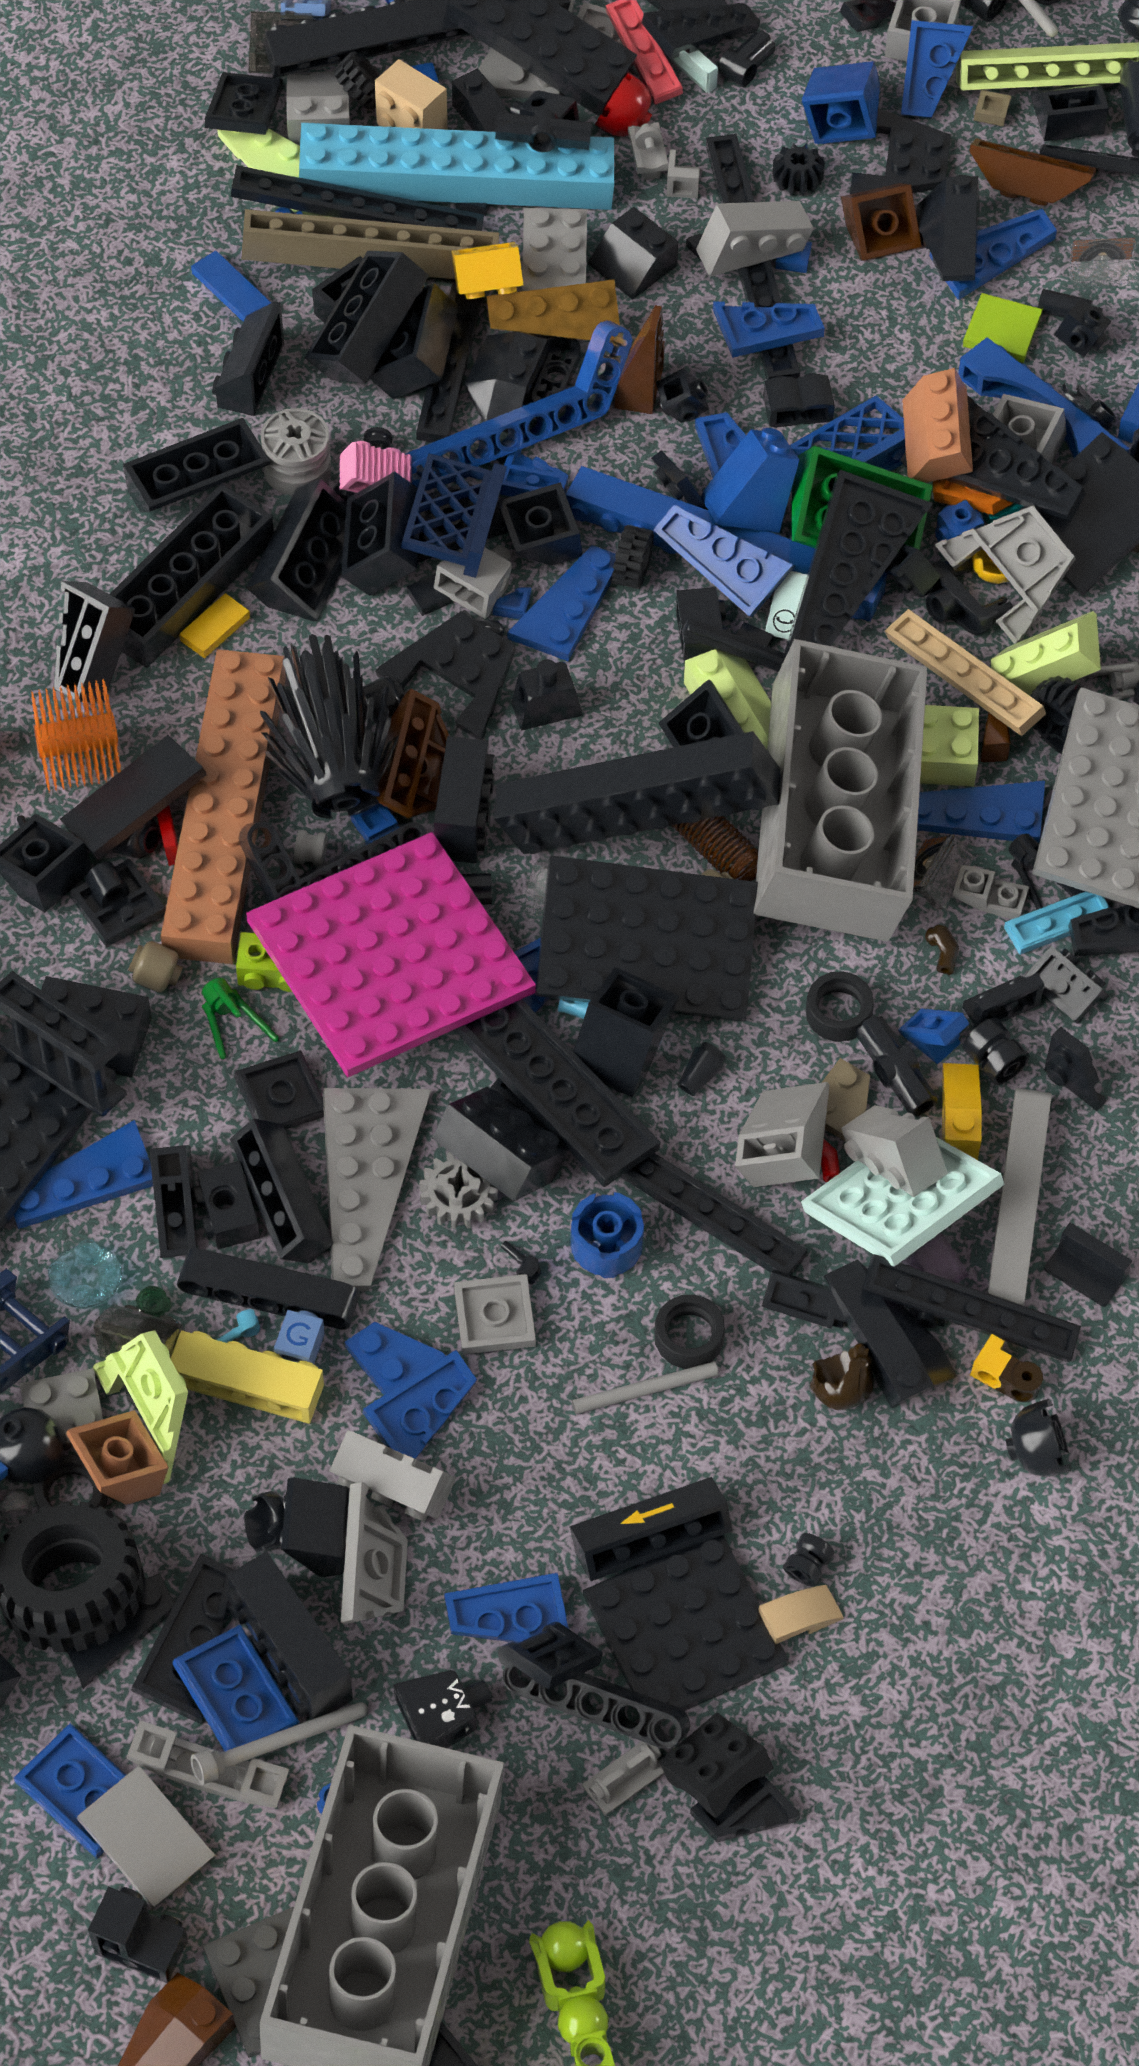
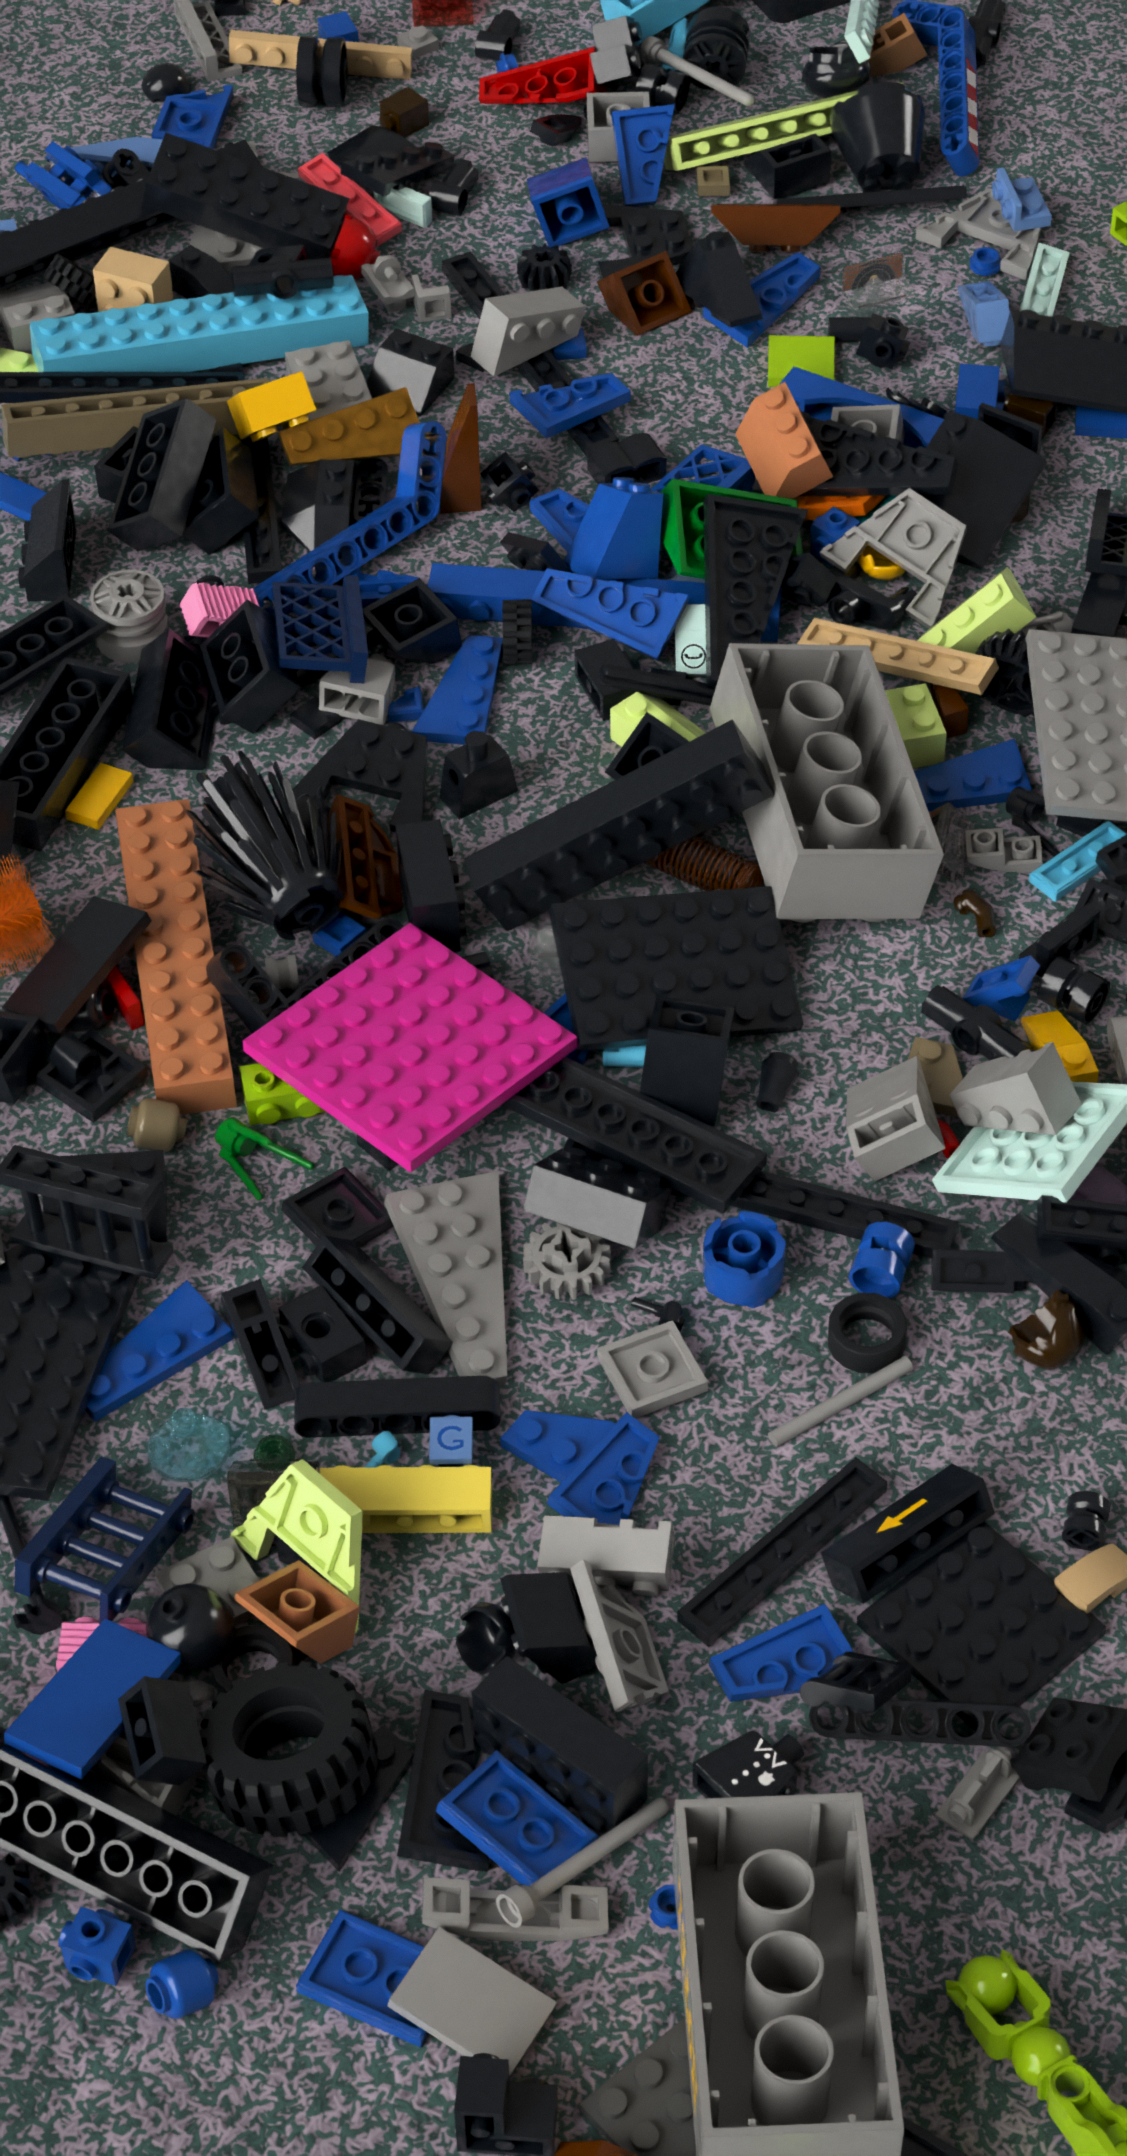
camera: 15 degrees left, 10 degrees down
(542, 1512) = (781, 1551): none -> black plate
(726, 1267) = (882, 1259): none -> blue wheel
(838, 982) = (892, 1011): black tyre -> none

